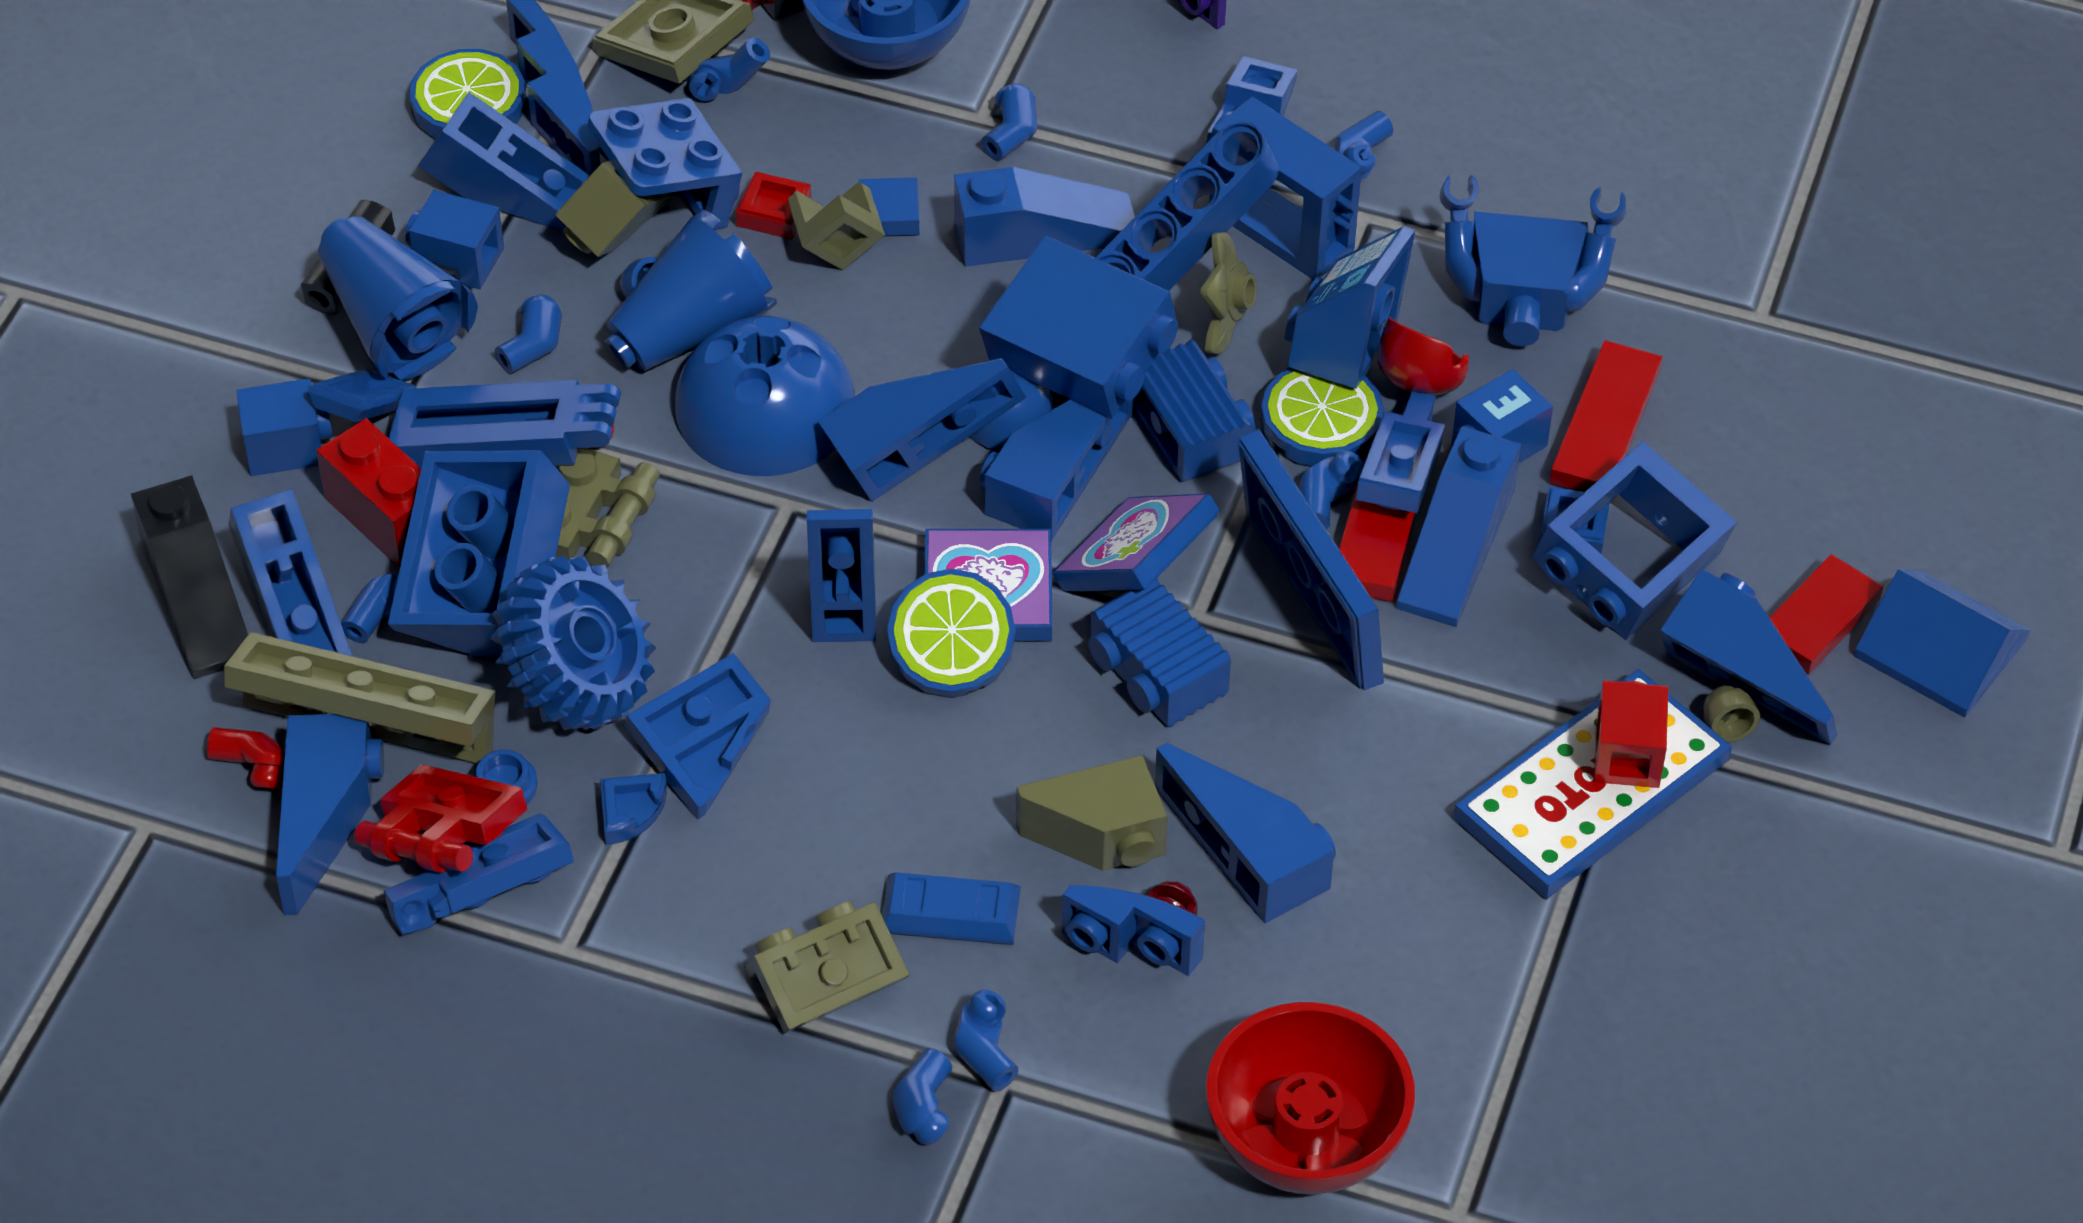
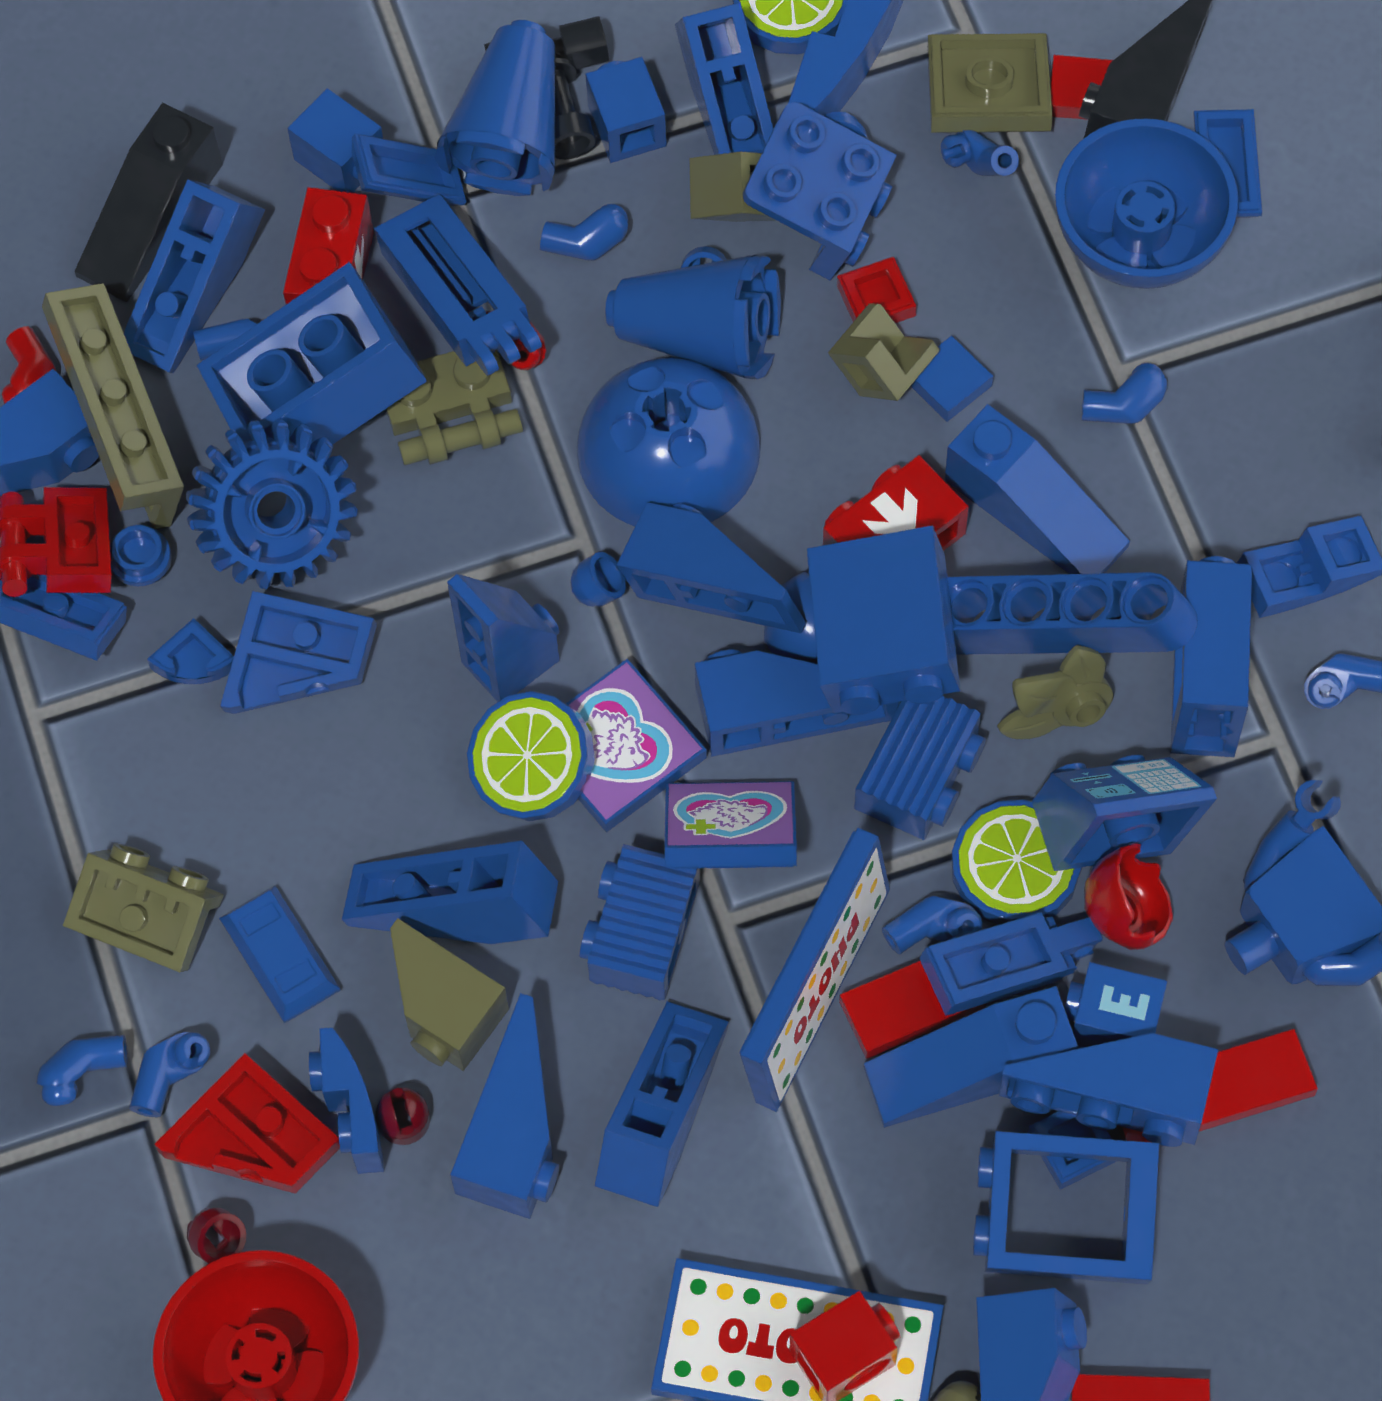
camera: 55 degrees right, 15 degrees up
(839, 498) = (597, 580): none -> blue hinge
(973, 286) = (899, 502): none -> red brick
(1033, 736) = (457, 894): none -> blue slope
(1095, 1011) = (251, 1131): none -> red wing
(1161, 1091) = (222, 1222): none -> dark red hinge
(1326, 735) = (659, 1104): none -> blue slope
(1575, 440) = (1129, 1083): none -> blue slope

